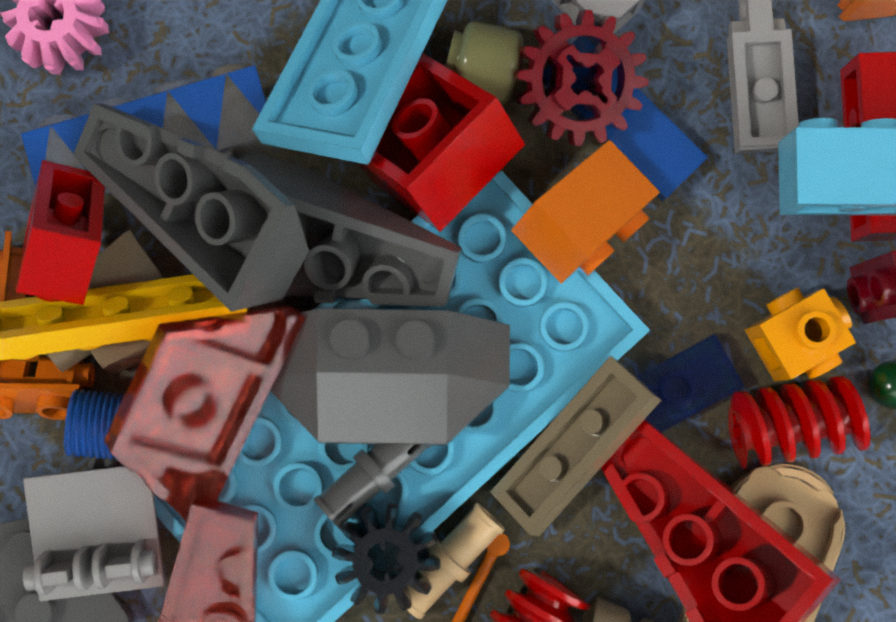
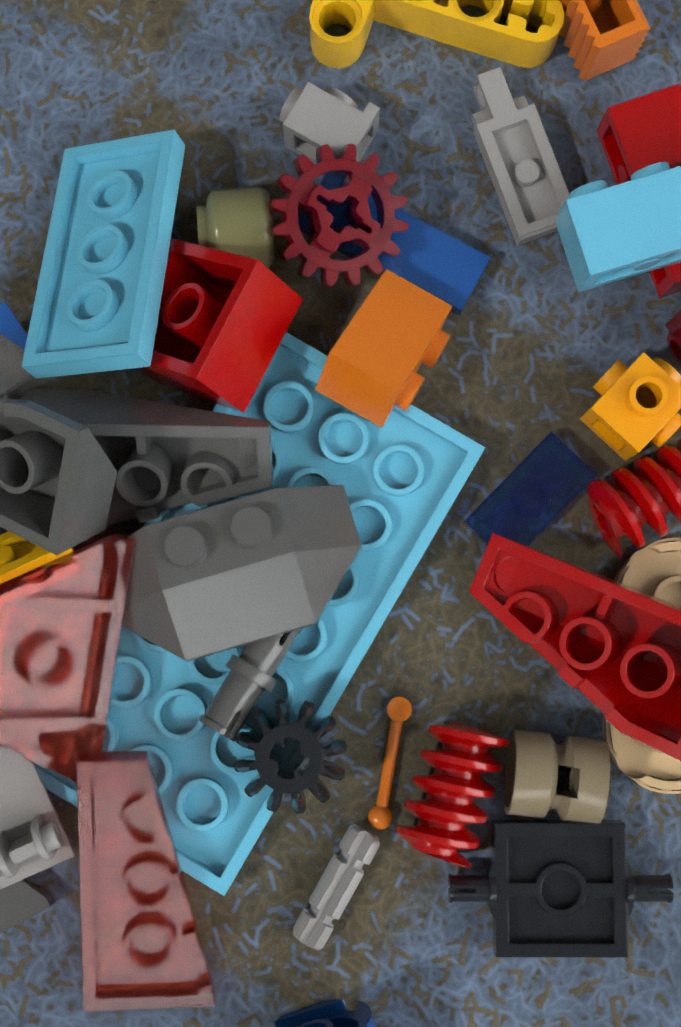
camera: 20 degrees left, 0 degrees up
(456, 555) = (360, 732): tan pin -> none
(575, 446) = (445, 587): dark tan plate -> none

